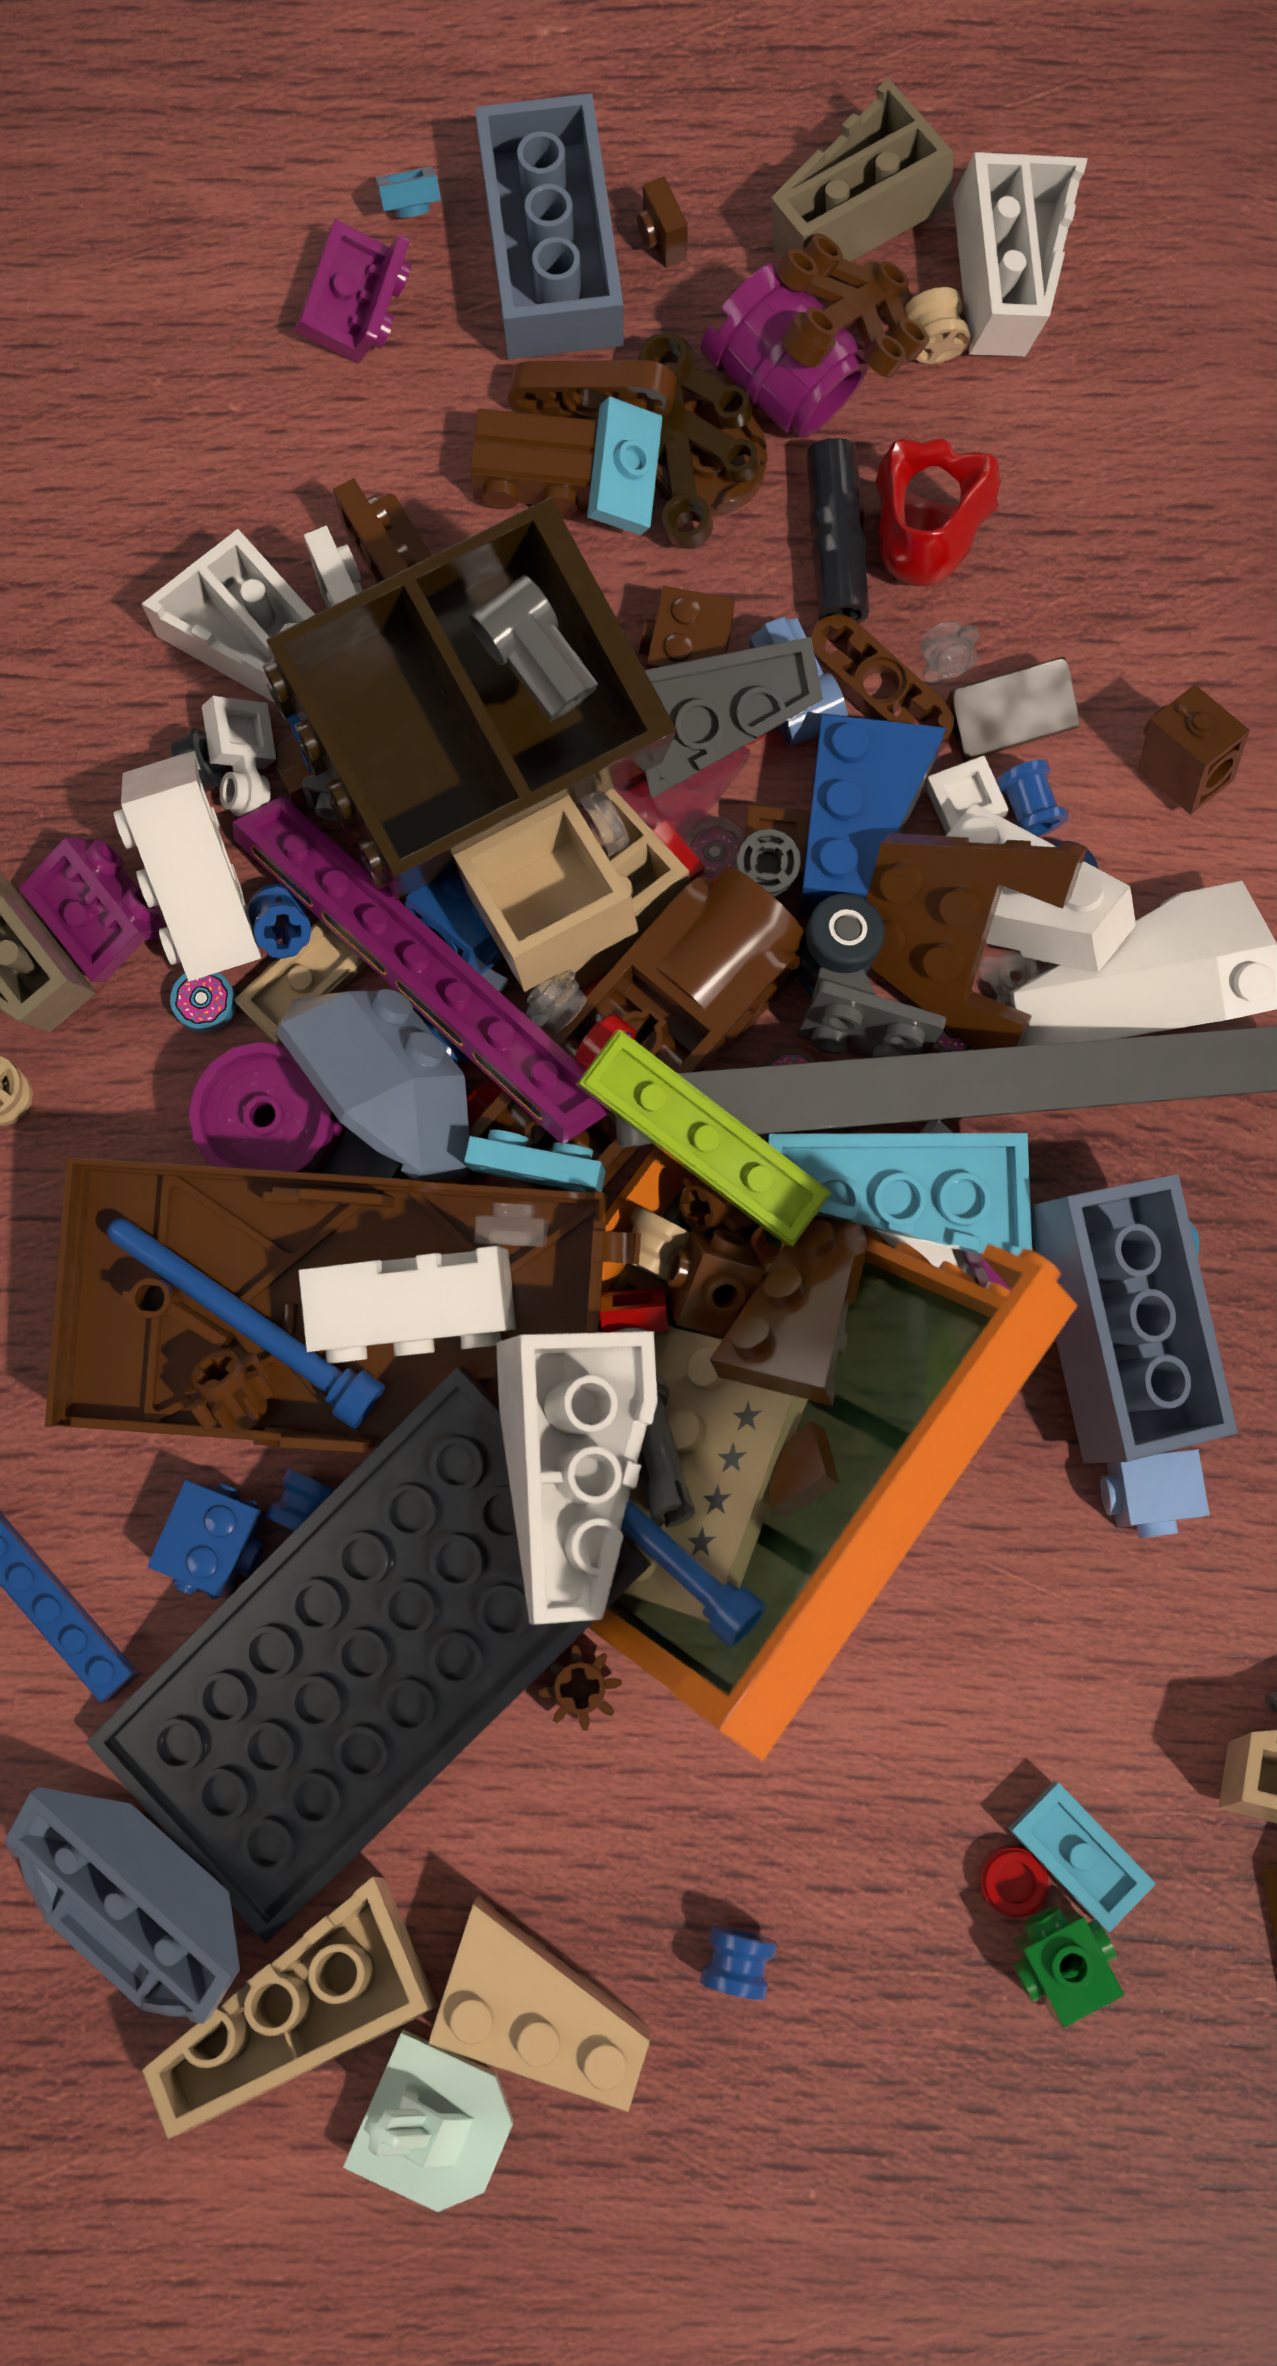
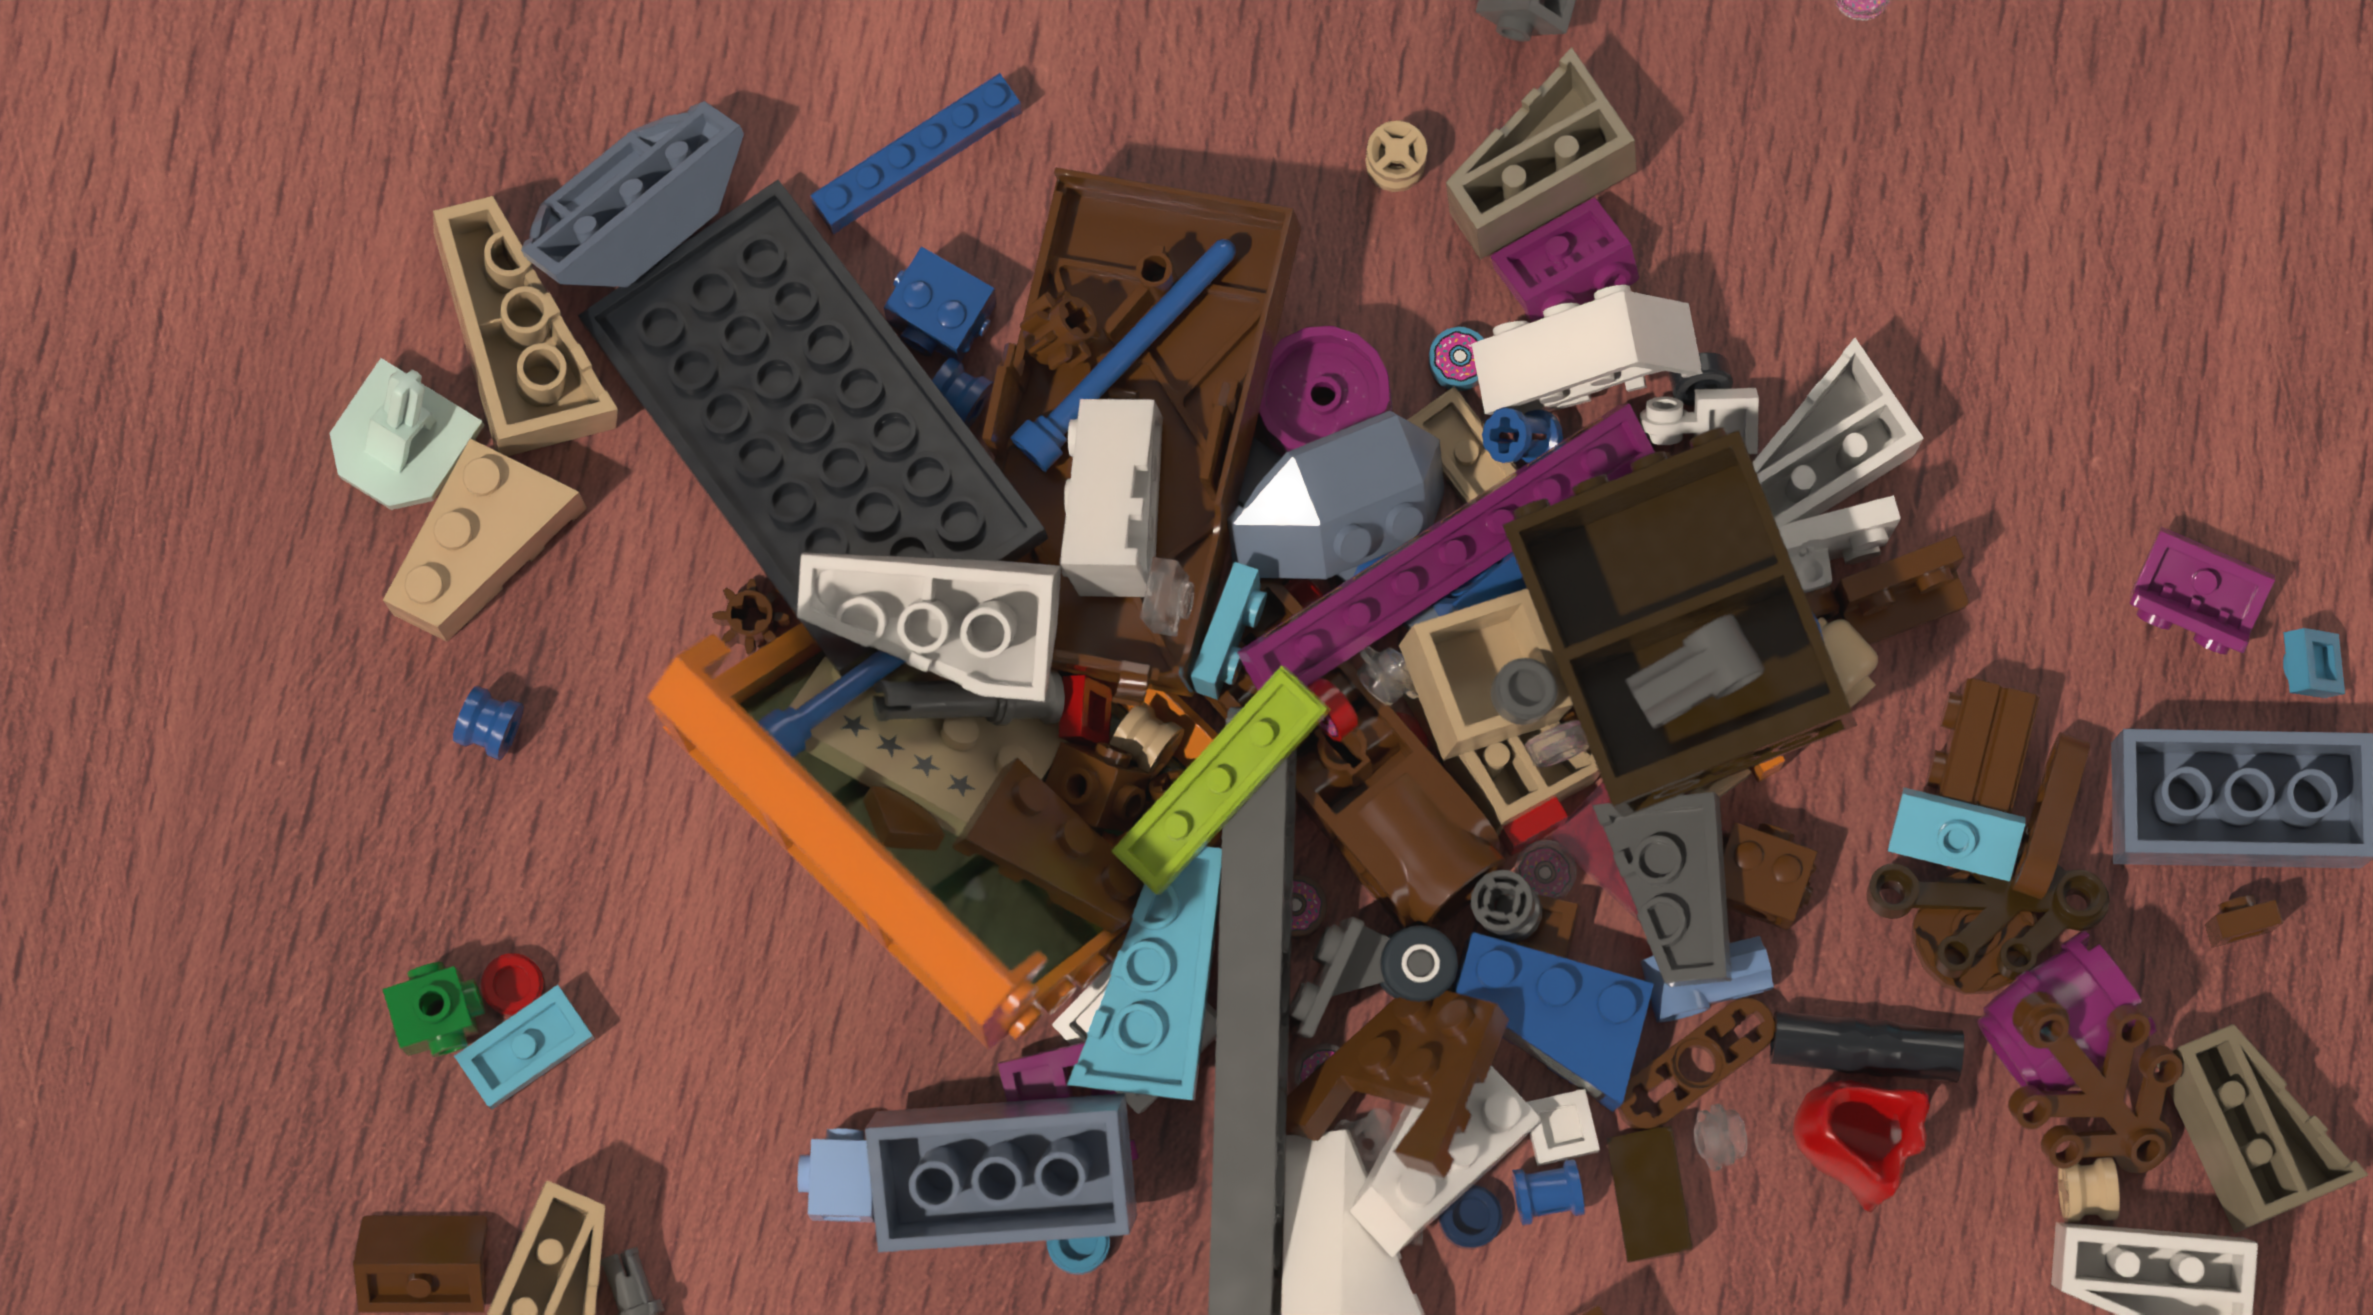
camera: 100 degrees right, 0 degrees up
(567, 838) = (1523, 691): none -> dark grey tile

